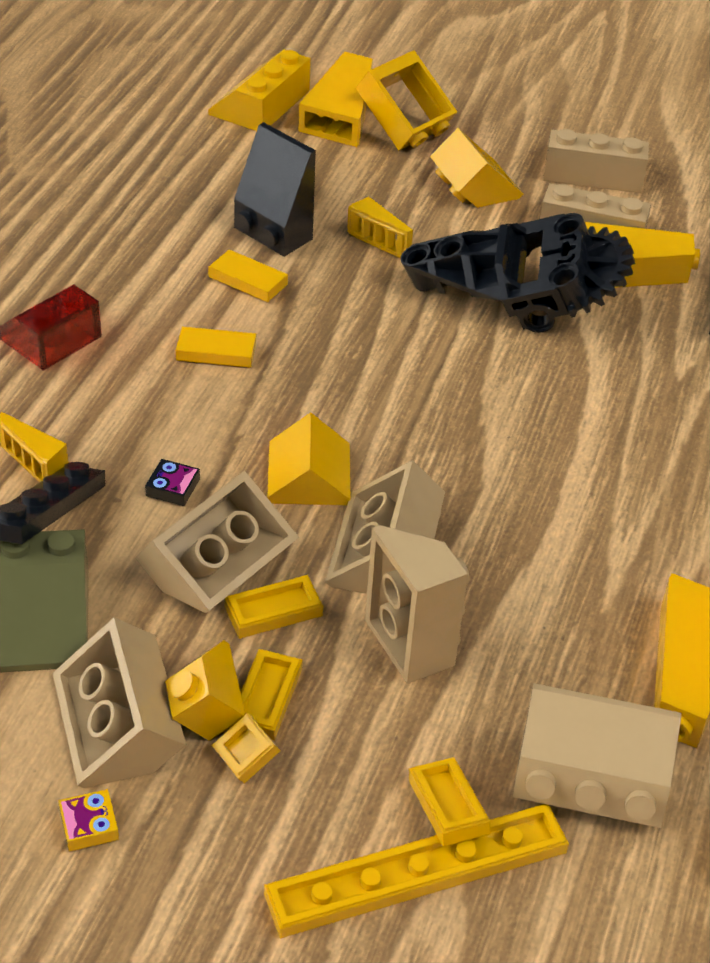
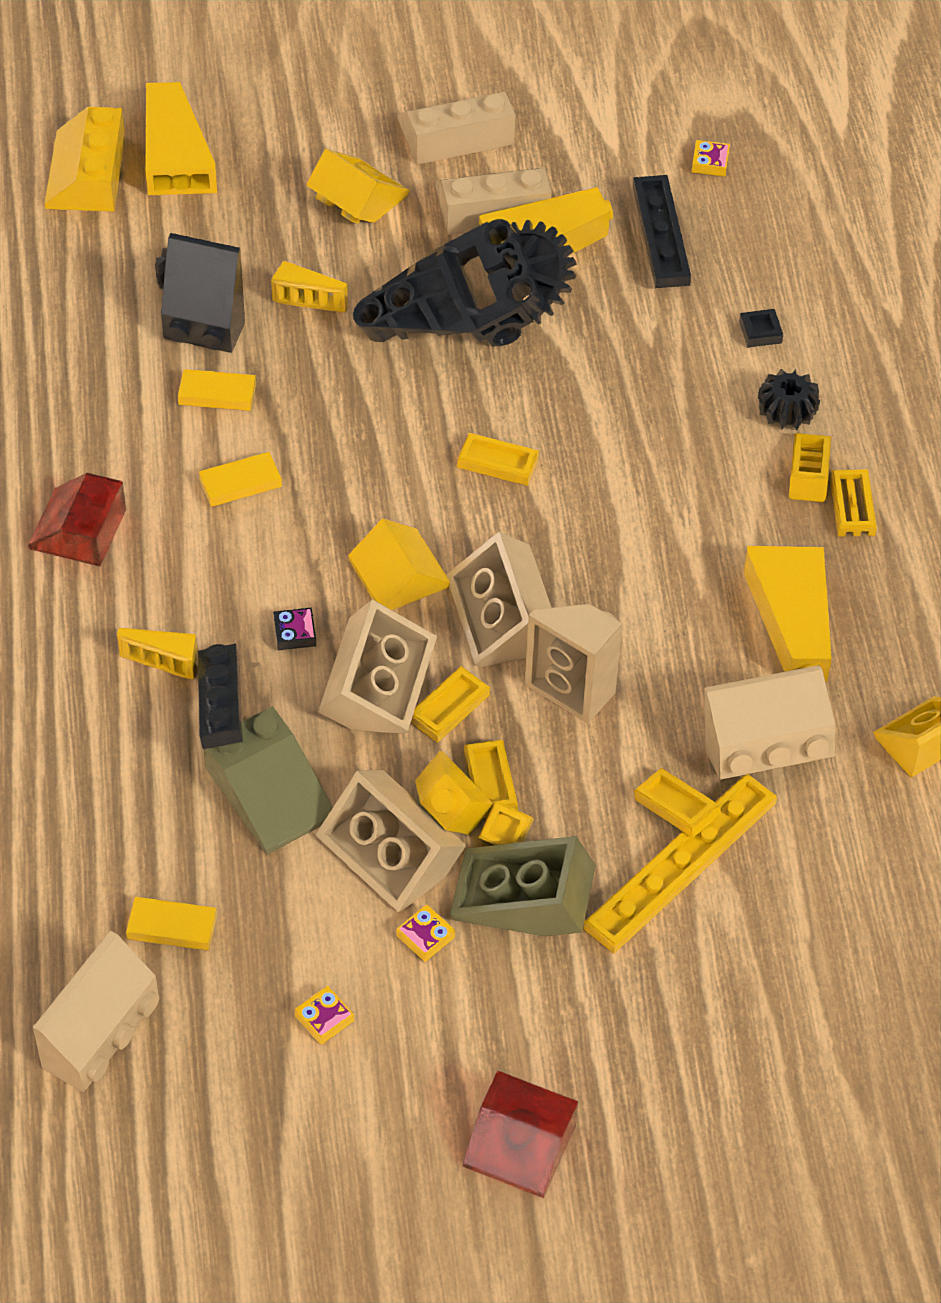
camera: 25 degrees left, 10 degrees up
(225, 819) = (526, 886): none -> olive slope
(424, 89) = (263, 110): yellow window -> none
(468, 415) = (498, 459): none -> yellow tile

